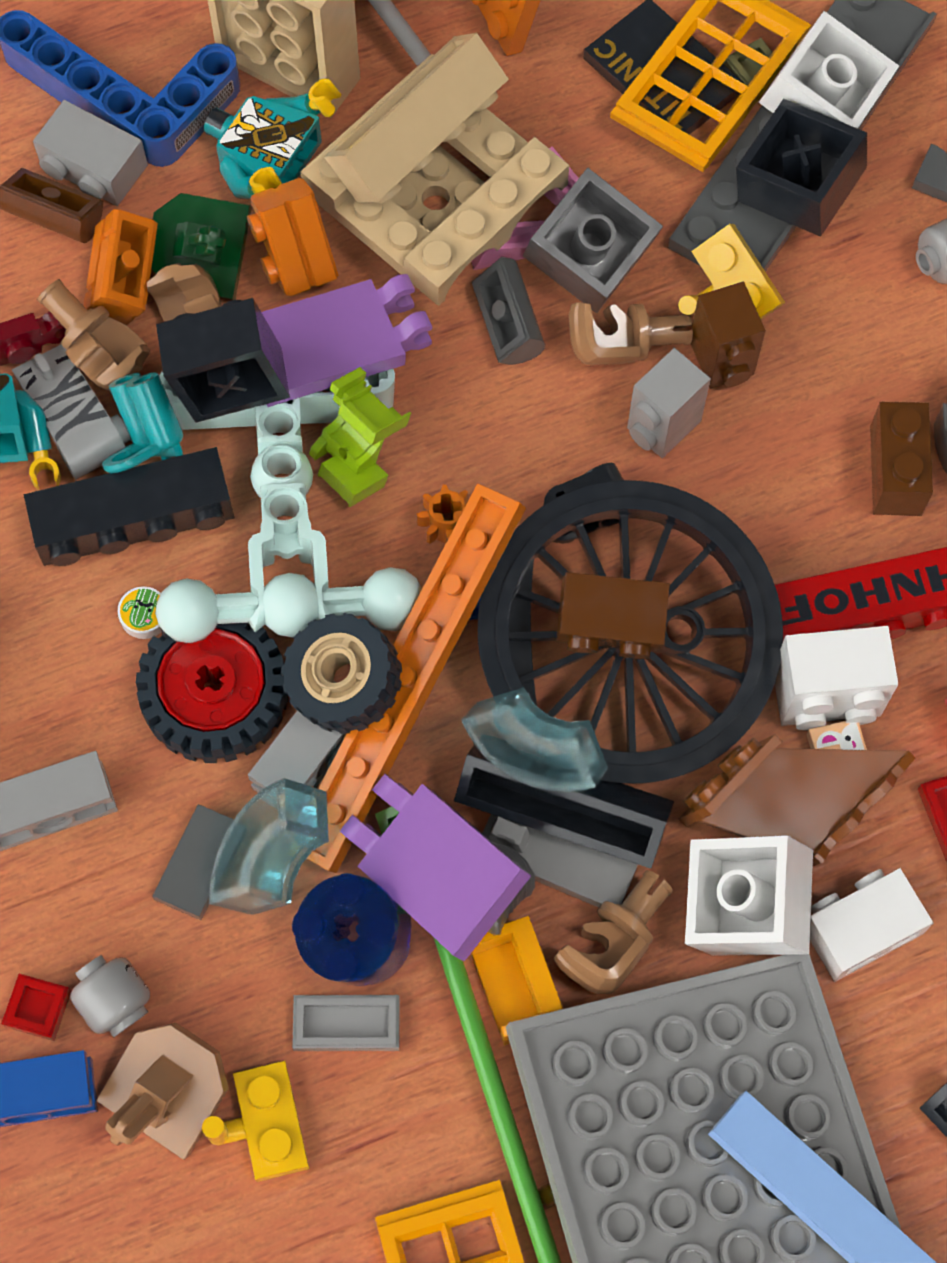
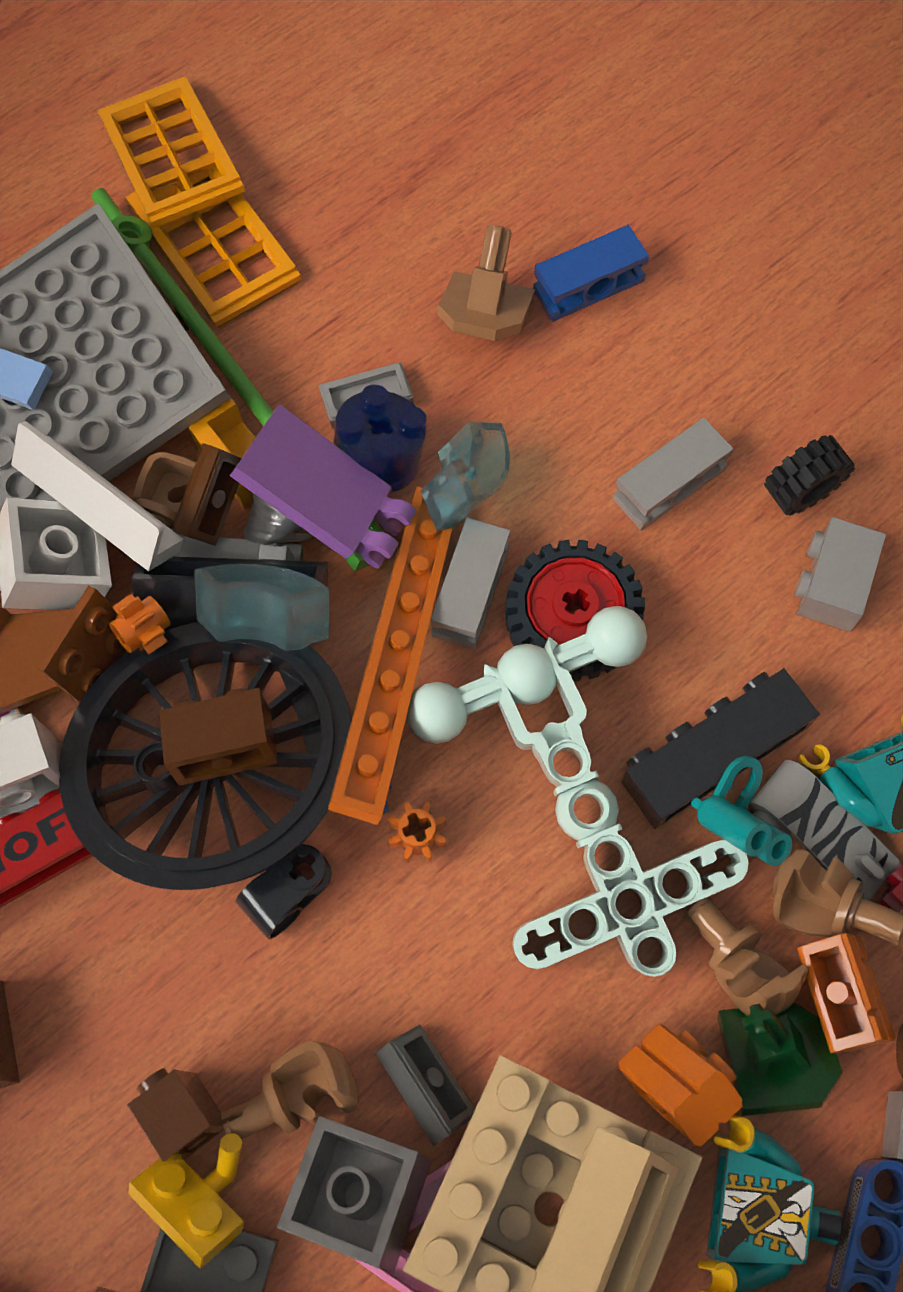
camera: 165 degrees right, 0 degrees up
(36, 1007) = (609, 338): red tile -> none
(110, 995) = (554, 351): light grey head -> none
(138, 614) = (664, 661): tile -> none
(189, 871) = (528, 474): dark grey tile -> none
(222, 360) = (685, 866): black brick -> none
(266, 1122) = (403, 314): yellow plate -> none
(317, 657) = (448, 643): black wheel -> none
(346, 331) = (596, 965): medium lavender tile -> none
(356, 439) = (521, 865): lime piece -> none
(562, 912) = (207, 496): none -> reddish brown brick
(667, 403) = (225, 1008): light grey brick -> none
(668, 776) = (139, 624): none -> orange gear
(687, 933) = (93, 498): none -> white panel

